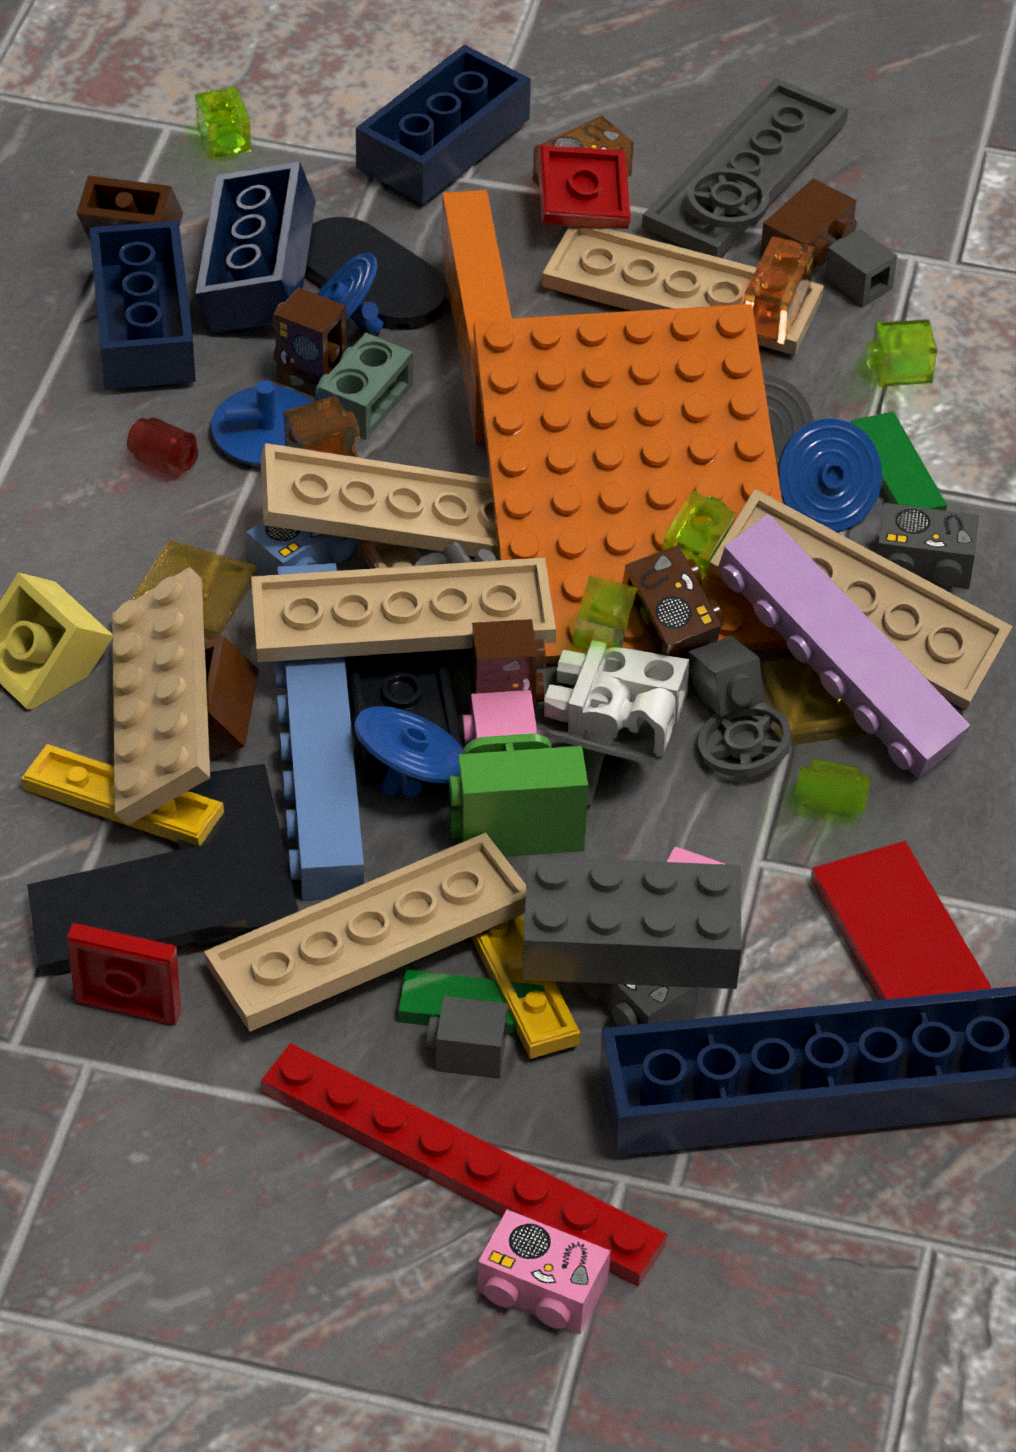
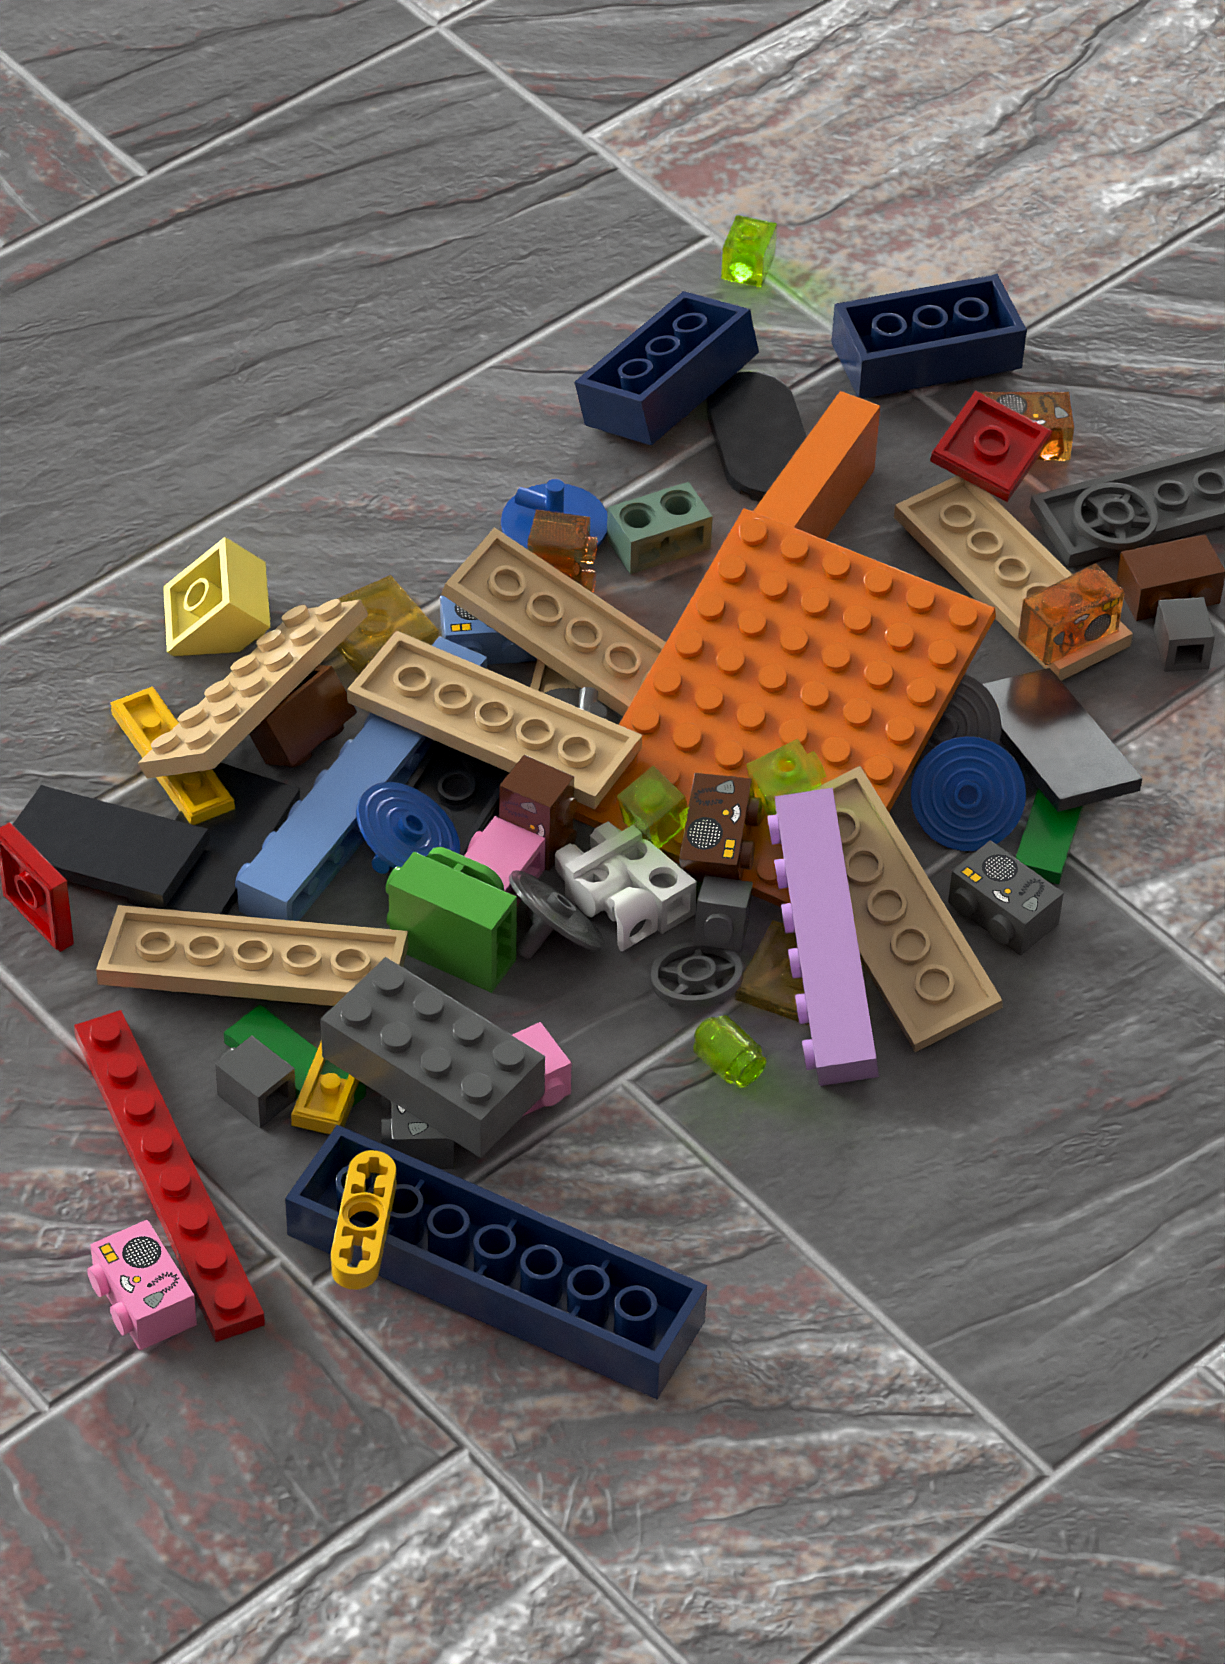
camera: 35 degrees right, 0 degrees up
(126, 202) = (594, 291): reddish brown brick -> none
(142, 305) = (530, 371): dark blue brick -> none
(163, 446) = (452, 497): clear red brick -> none
(308, 339) = (633, 460): reddish brown brick -> none
(350, 287) = (697, 443): blue shield -> none
(710, 1117) = (370, 1238): none -> yellow beam
(885, 408) = (1059, 742): none -> tile
(897, 924) = (679, 1189): red tile -> none
(902, 353) = (1148, 725): clear neon green brick -> none

